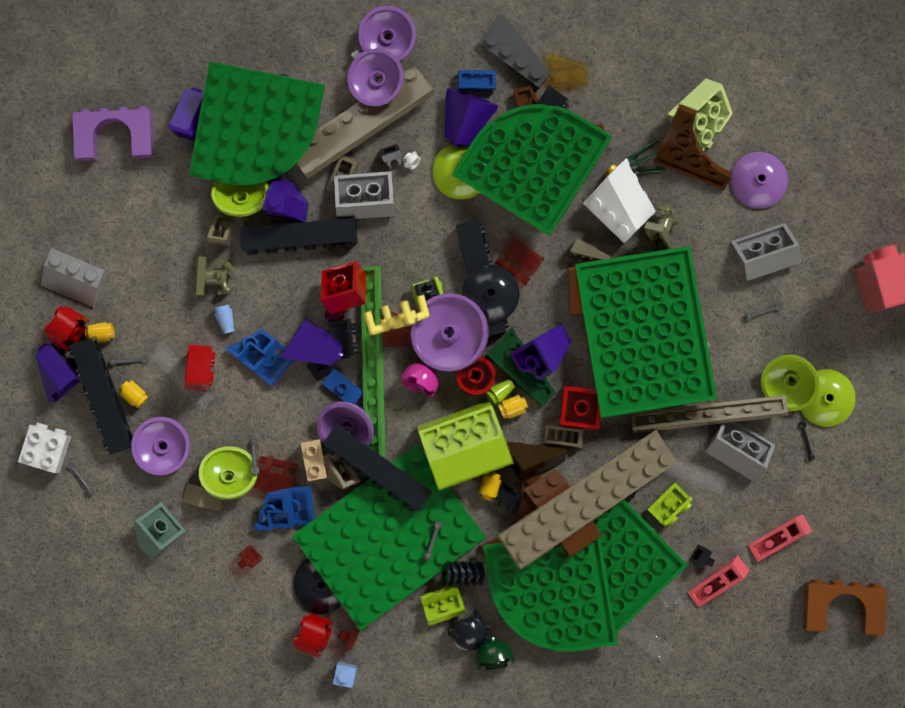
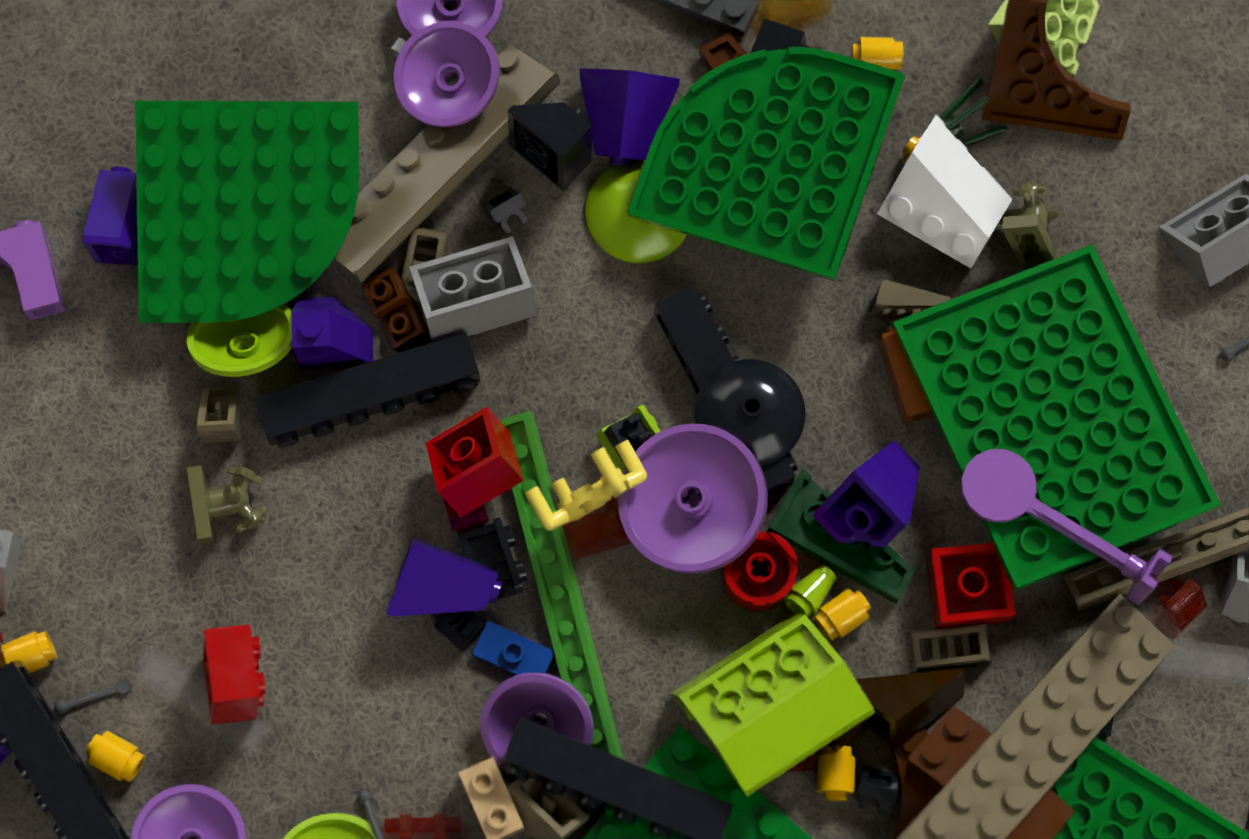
camera: 20 degrees left, 10 degrees down
(225, 318) = (261, 573): light blue cone -> none
(259, 355) = (340, 628): blue slope -> none
(323, 197) = (396, 309): none -> reddish brown slope
(411, 160) = (544, 210): white plate -> none
(420, 378) = (658, 600): dark pink cylinder -> none
(423, 126) = (552, 139): none -> black slope
(477, 80) = (629, 45): blue plate -> none
(522, 255) = (792, 337): clear red plate -> none
(606, 115) = (879, 51): none -> yellow brick
(607, 364) = (1003, 488): none -> medium lavender piece
(670, 504) = (1183, 729): lime bracket -> none
(688, 442) = (1184, 604): none -> clear red tile
(747, 186) = (1167, 126): medium lavender dish -> none

